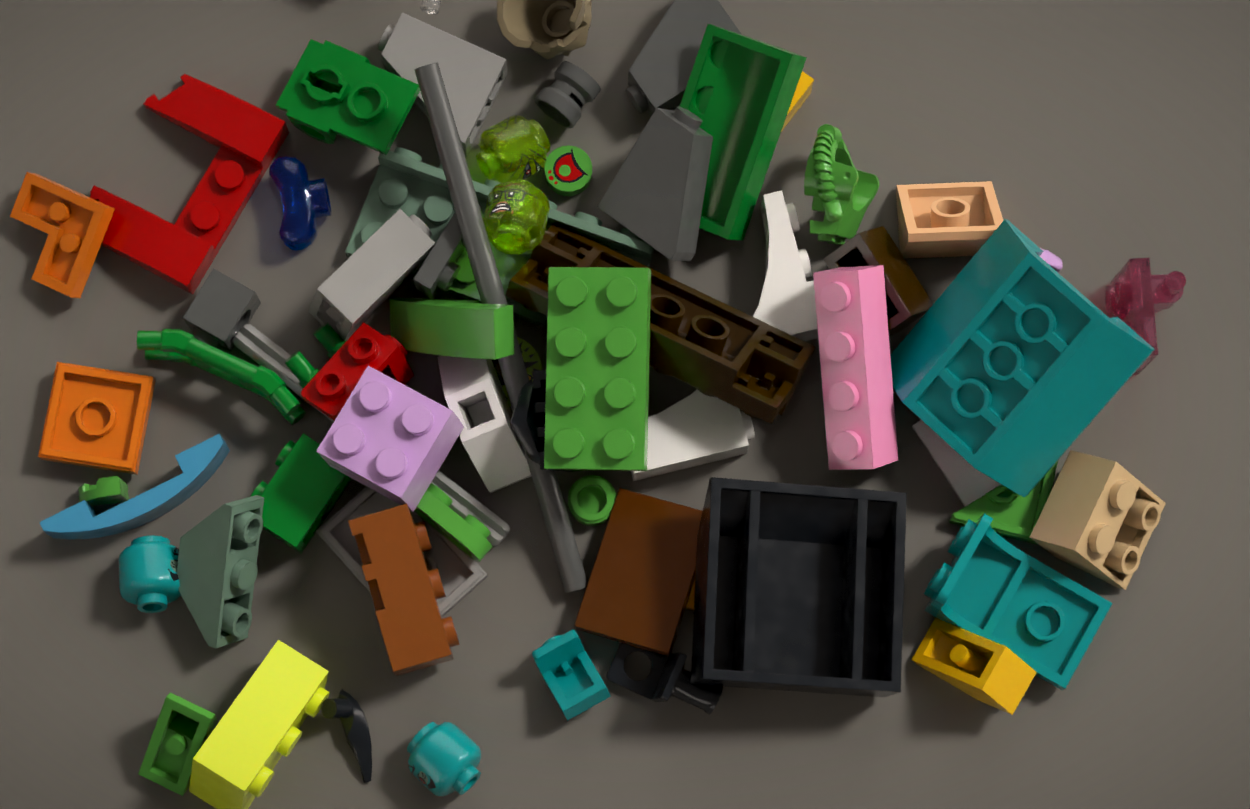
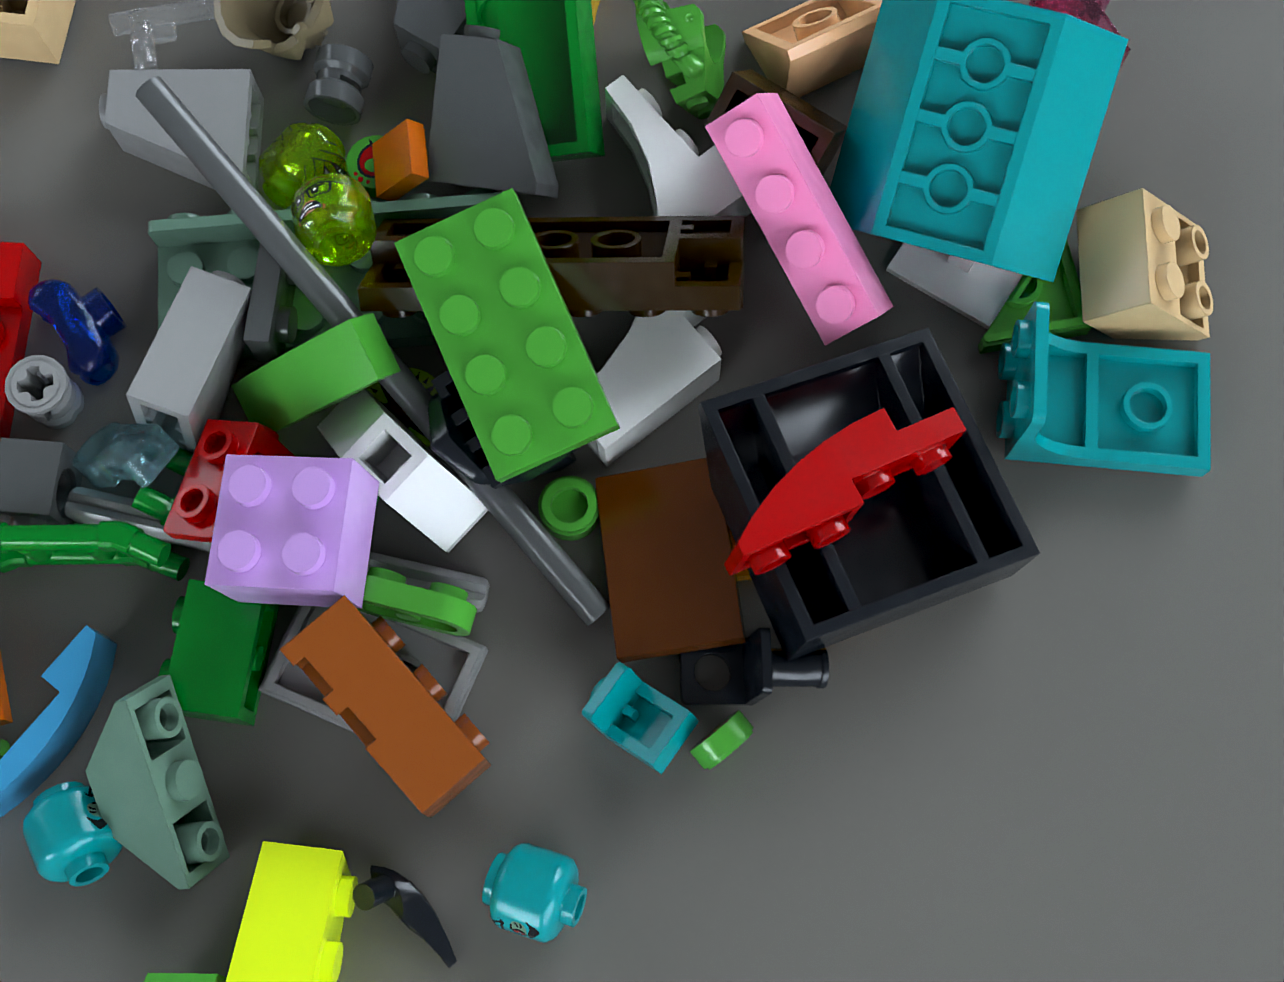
camera: 20 degrees left, 5 degrees down
(244, 232) = (47, 400): none -> light grey bush
(294, 318) = (125, 453): none -> clear light blue piece
(346, 96) = (82, 184): green piece -> none
(585, 182) = (400, 160): none -> orange tile
(620, 717) = (722, 740): none -> bright green tile
(758, 582) = (832, 482): none -> red slope
(975, 665) = (1097, 490): yellow slope -> none

